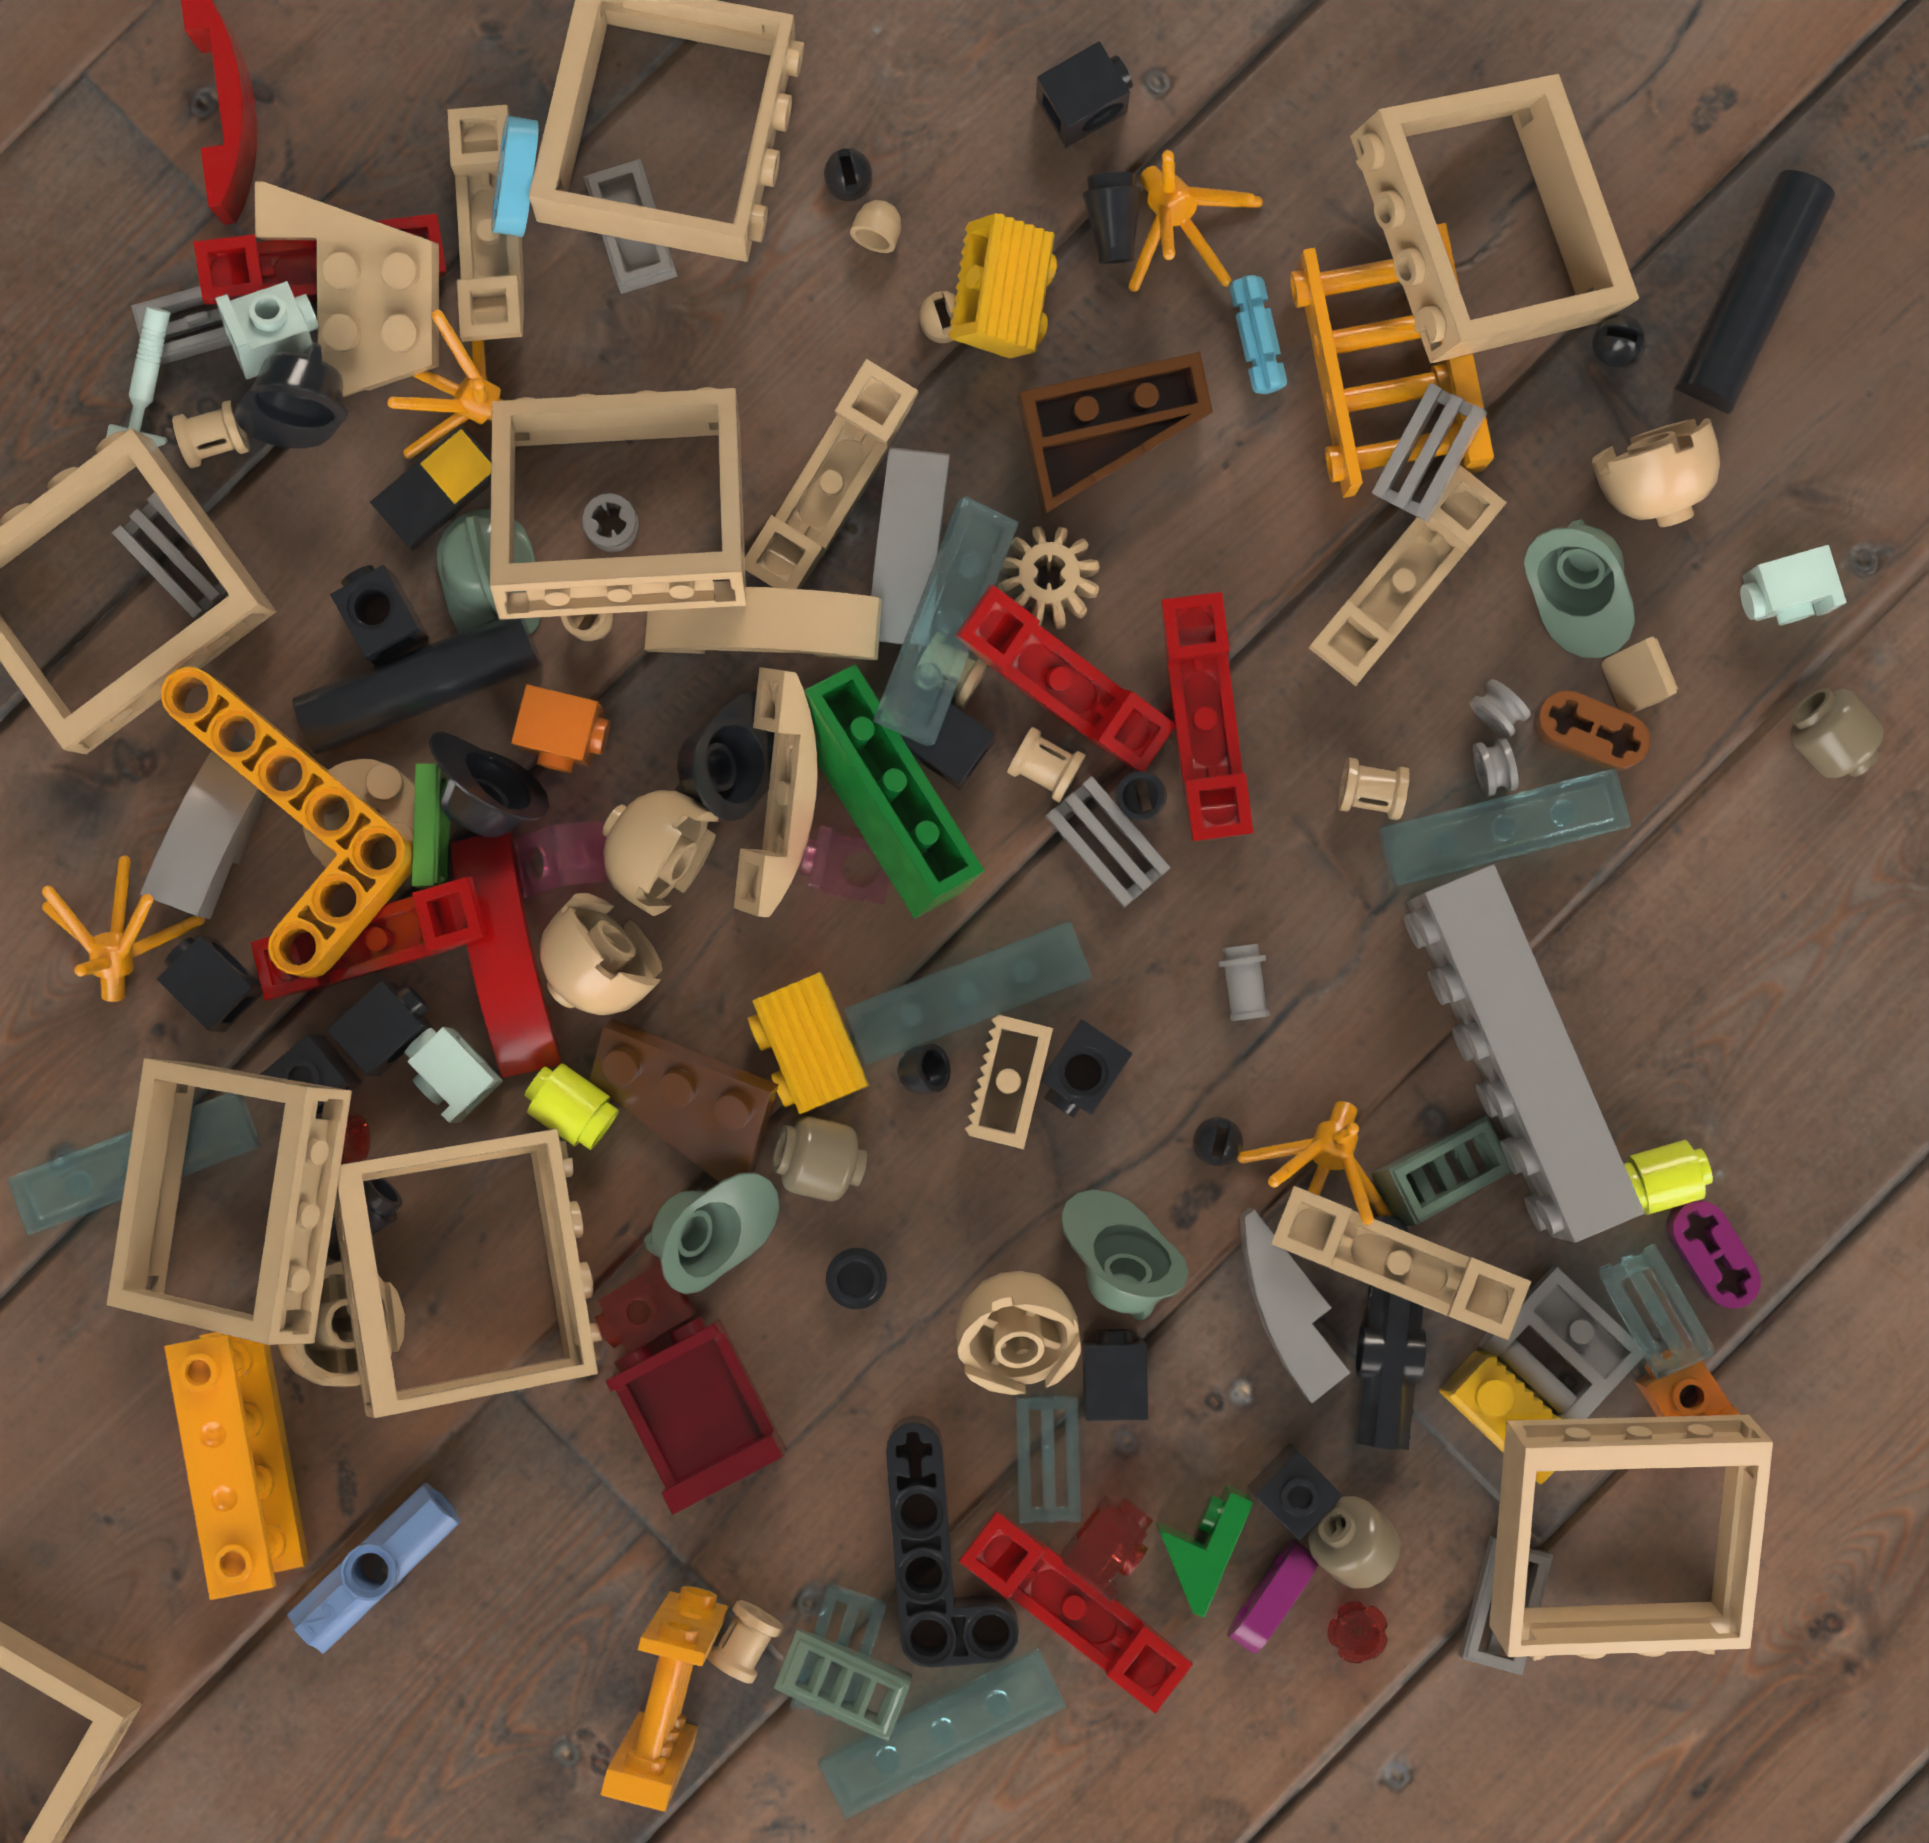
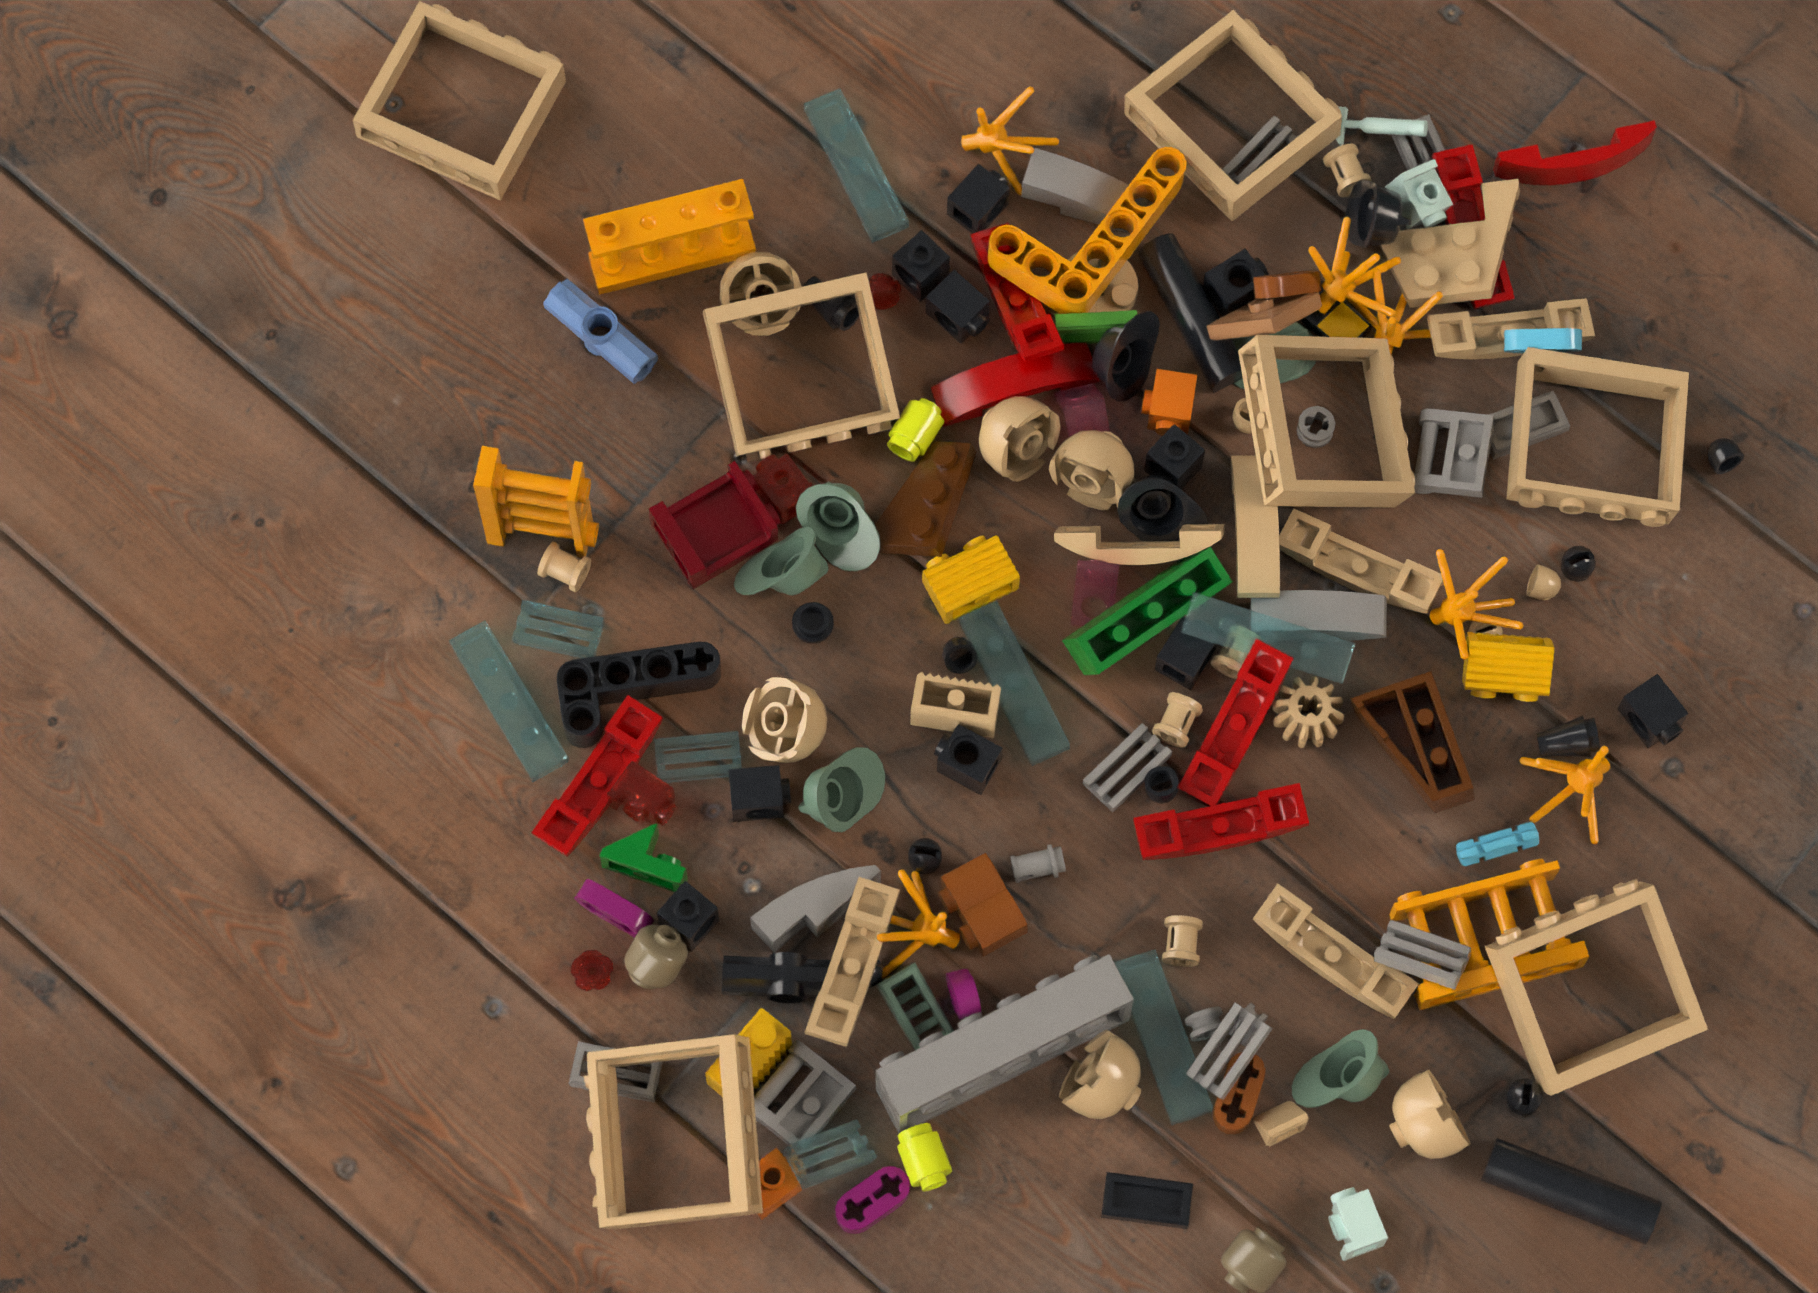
camera: 80 degrees right, 15 degrees down
(298, 1209) = (838, 249): tan window -> none
(395, 537) = (1287, 284): none -> dark orange beam
(400, 461) = (1339, 285): none -> light orange plant
(445, 575) = (1264, 316): none -> medium nougat plate
(451, 1072) = (931, 353): light aqua brick -> none
(650, 730) = (1175, 457): none -> black brick
(675, 311) = (1465, 452): none -> light grey plate
(770, 1318) = (785, 566): none -> sand green piece
(818, 1158) = (893, 589): dark tan head -> none
(833, 1704) = (530, 659): sand green slope -> none
(912, 341) = (1461, 606): none -> light orange plant
(1303, 1066) = (983, 905): none -> dark orange brick
(1442, 1105) = (963, 993): none -> magenta beam
(1574, 920) = (1104, 1079): none -> tan cylinder
(1584, 769) = (1215, 1041): none -> light grey tile
(1733, 872) = (1147, 1200): none -> black tile

